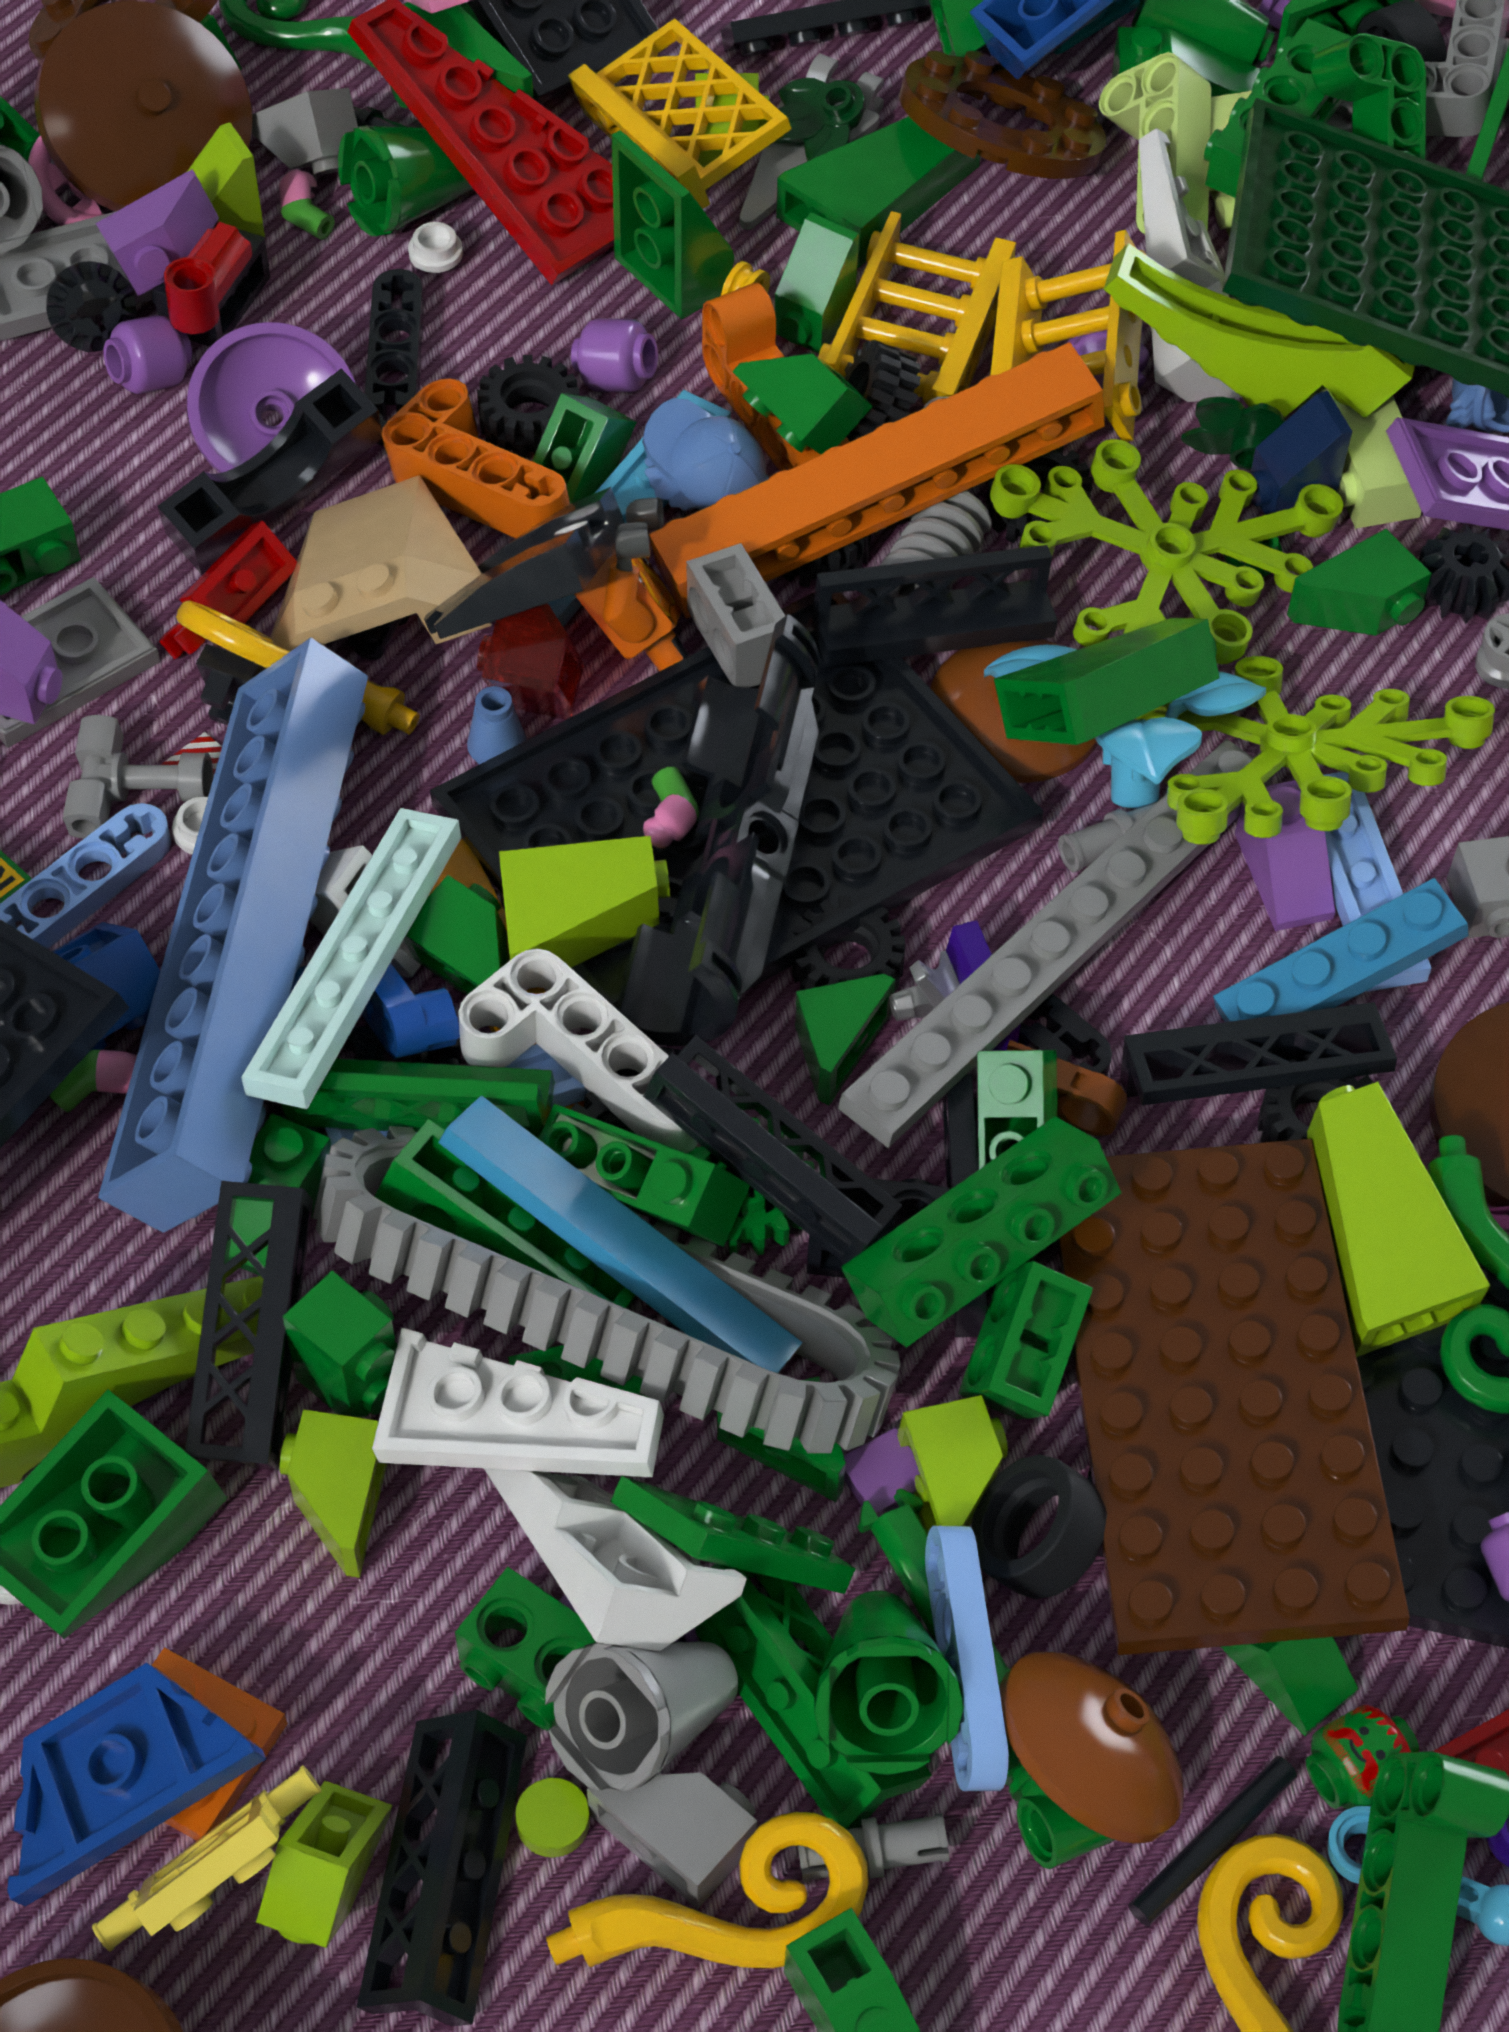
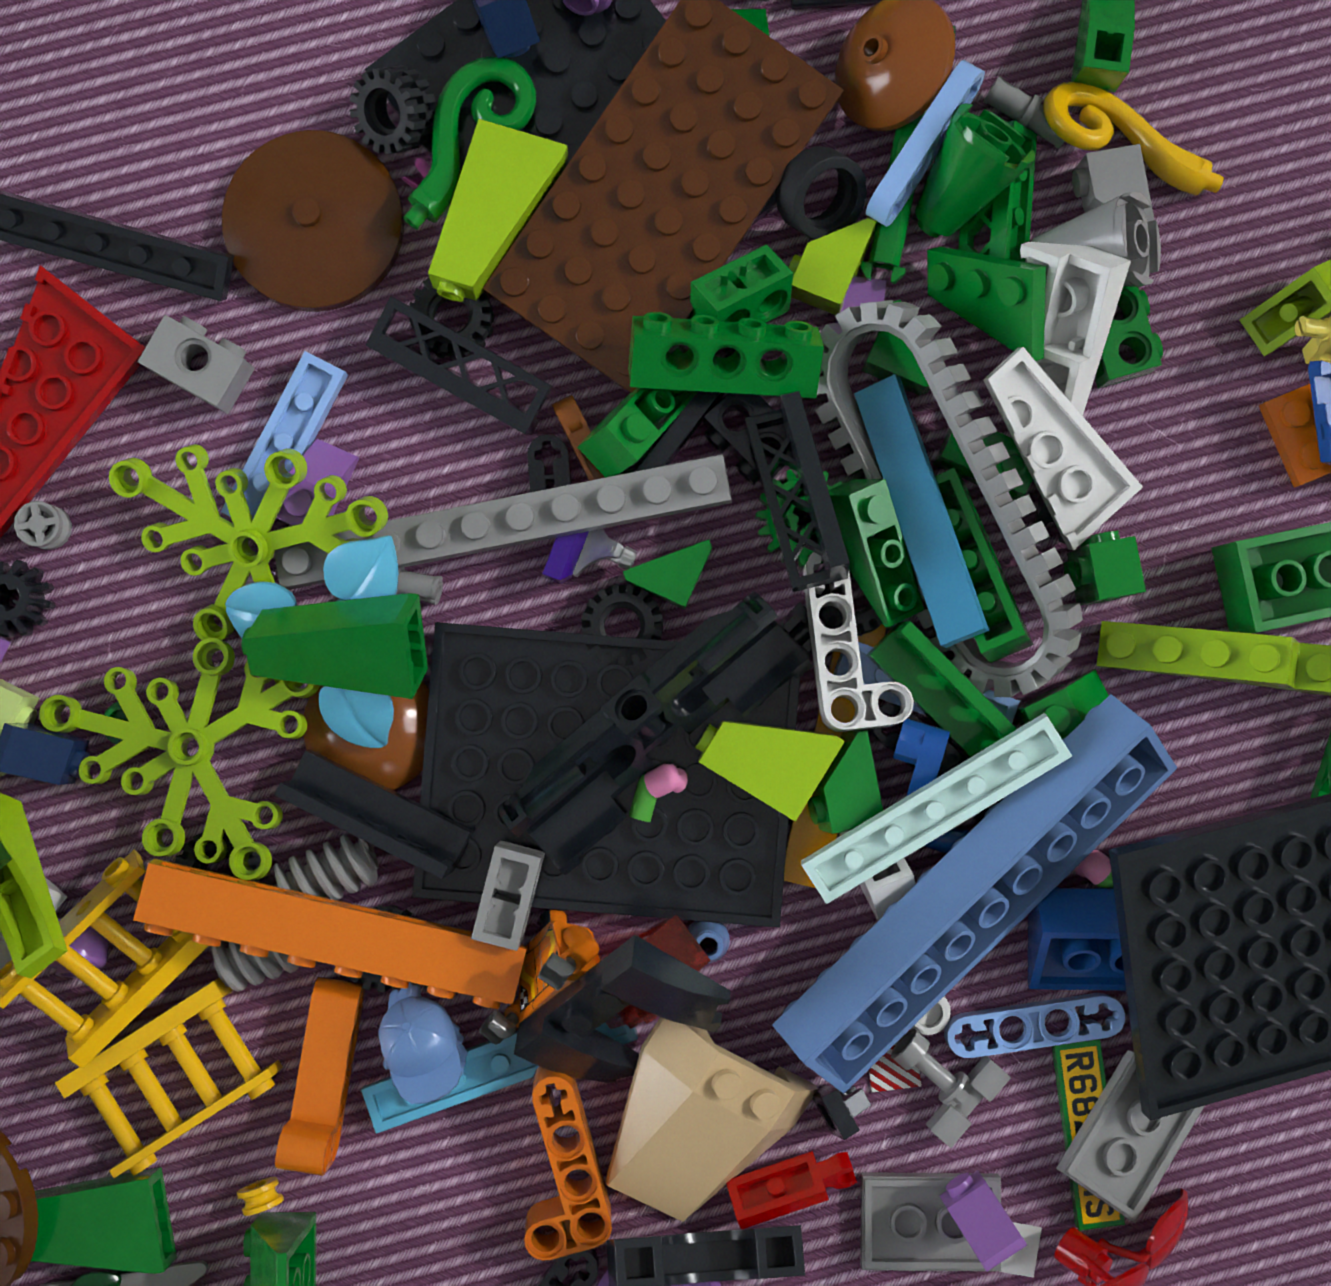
camera: 140 degrees left, 30 degrees up
(272, 1357) = (1135, 611): black fence -> none
(335, 1481) = (1156, 508): lime slope -> none
(382, 704) = (827, 1119): yellow plant -> none
(458, 1866) = (1240, 254): black fence -> none
(515, 386) = (479, 1229): black tyre -> none
(552, 1817) = (1175, 250): lime tile -> none
(583, 443) = (486, 1132): green slope -> none
(614, 355) = (395, 1201): medium lavender head -> none
(806, 396) = (324, 1038): green slope -> none
(817, 283) = (220, 1150): green slope -> none
(886, 381) = (263, 1020): black tyre -> none
(1232, 428) = (51, 806): dark green plate -> none
(1350, 957) = (355, 389): dark azure plate -> none
(1362, 588) = (85, 635): green slope -> none

